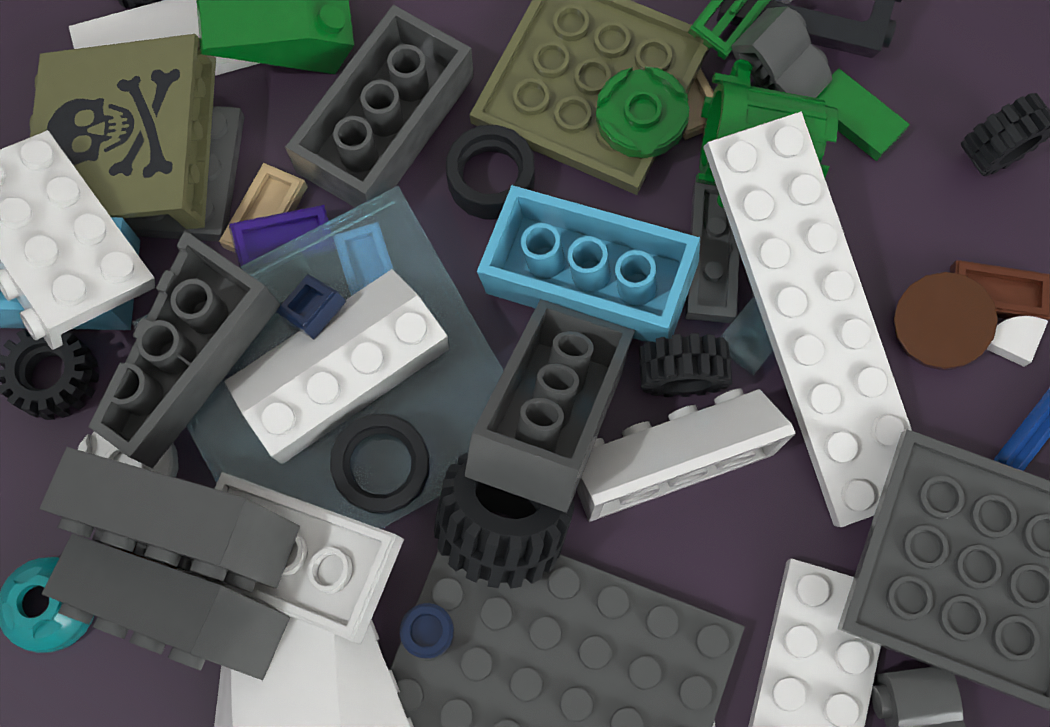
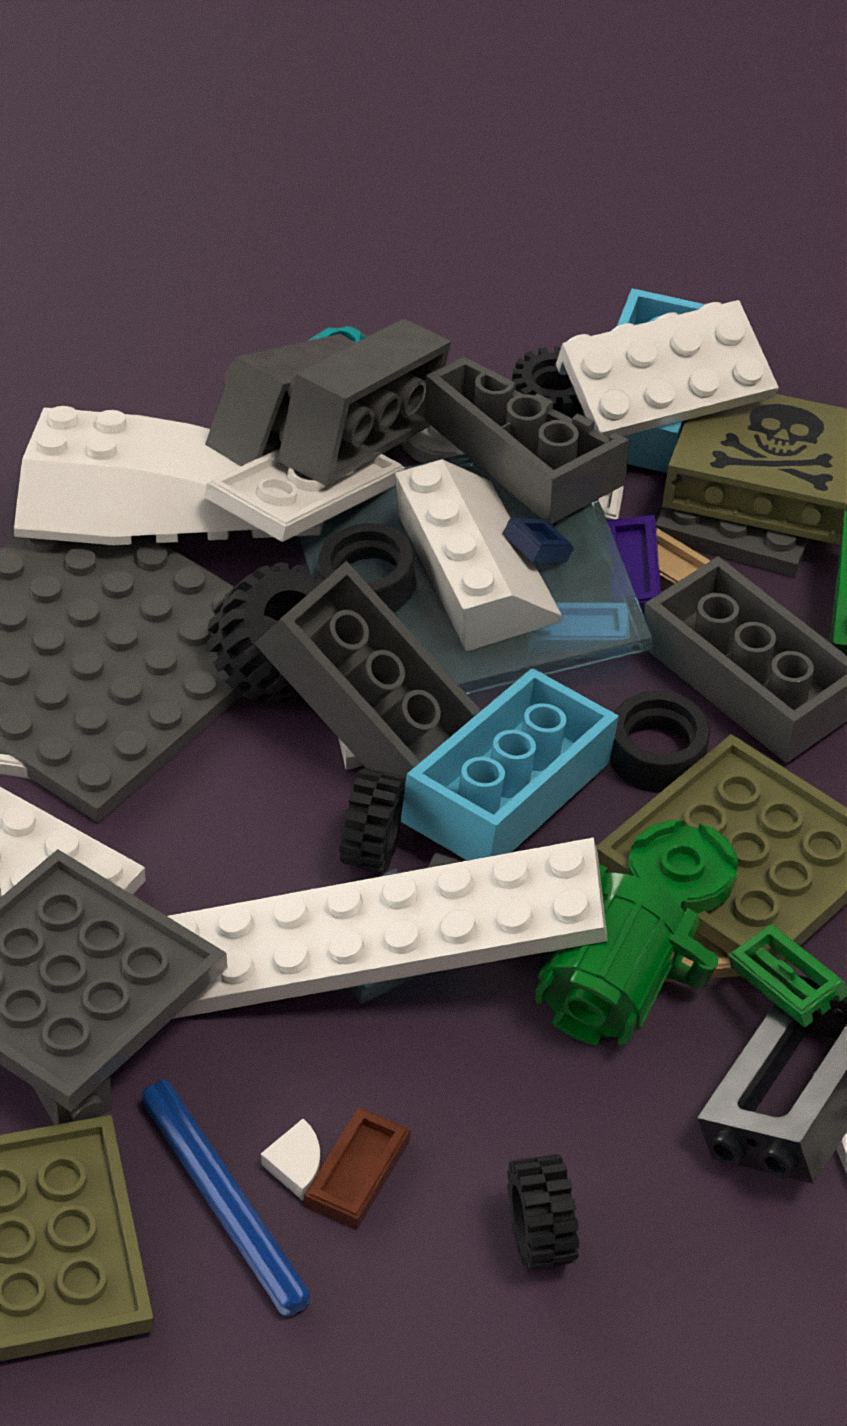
camera: 105 degrees right, 25 degrees down
(426, 631) = (200, 573): dark blue tile -> none
(681, 451) = (289, 790): white slope -> none
(783, 54) = (708, 1014): dark grey brick -> none
(862, 115) = (632, 1104): green tile -> none
(945, 320) = (340, 1082): reddish brown tile -> none

